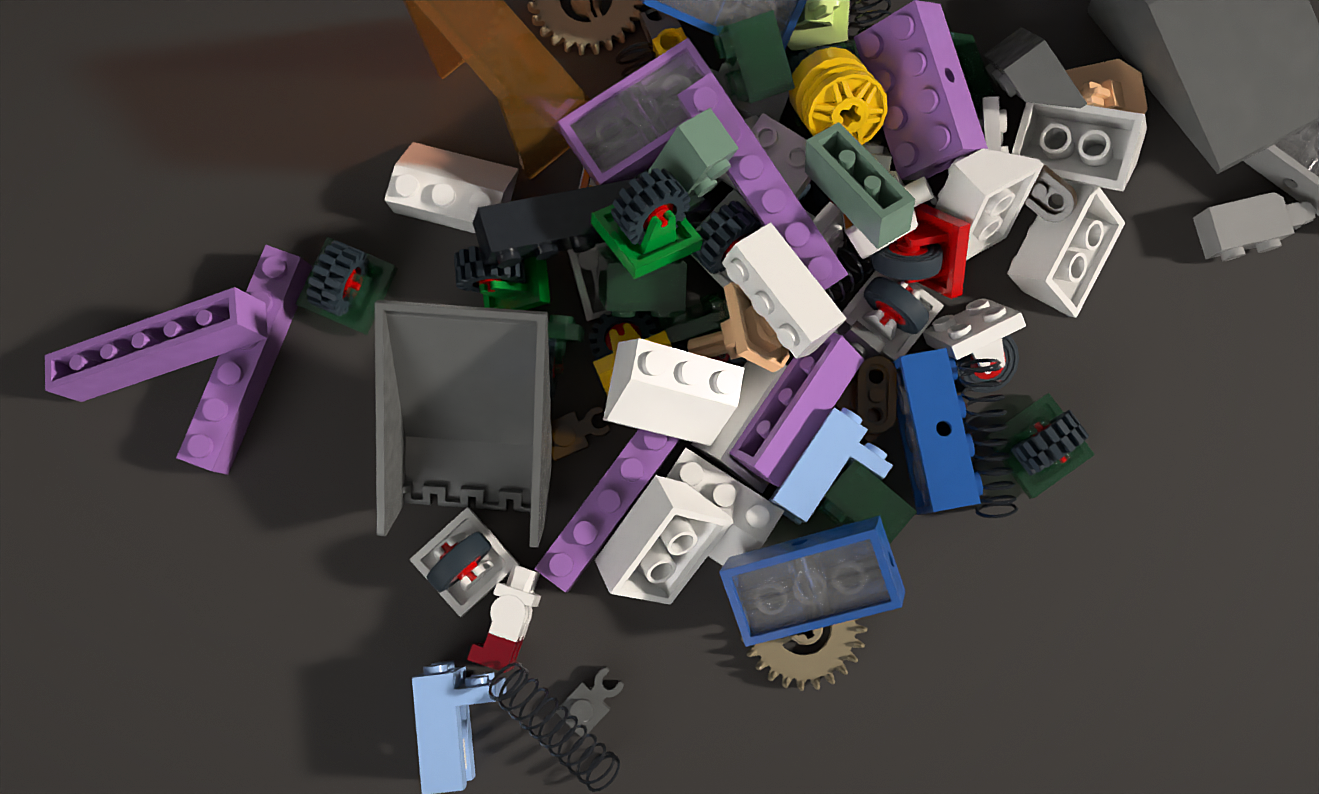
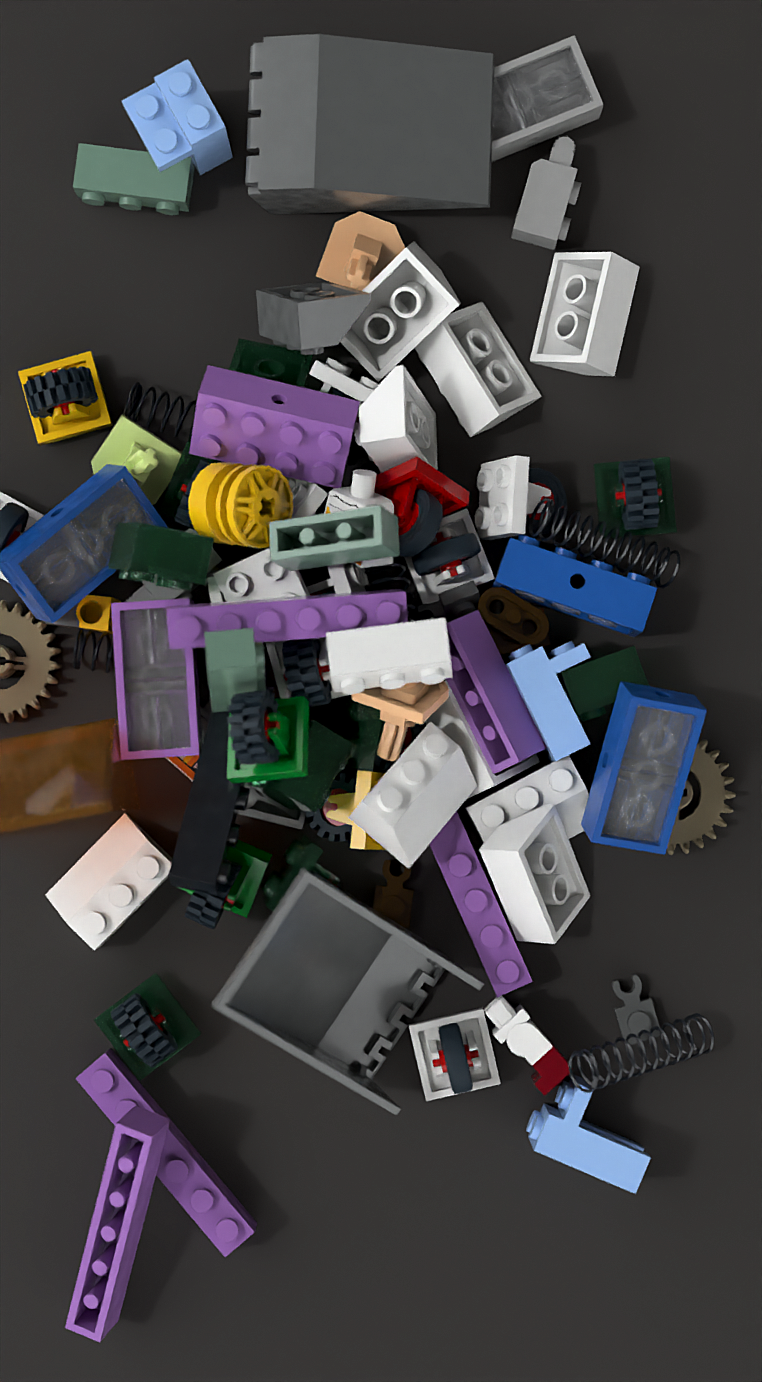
camera: 60 degrees left, 5 degrees up
(1041, 196) = (417, 364): plate -> none
(1173, 312) = (585, 312): none -> white slope

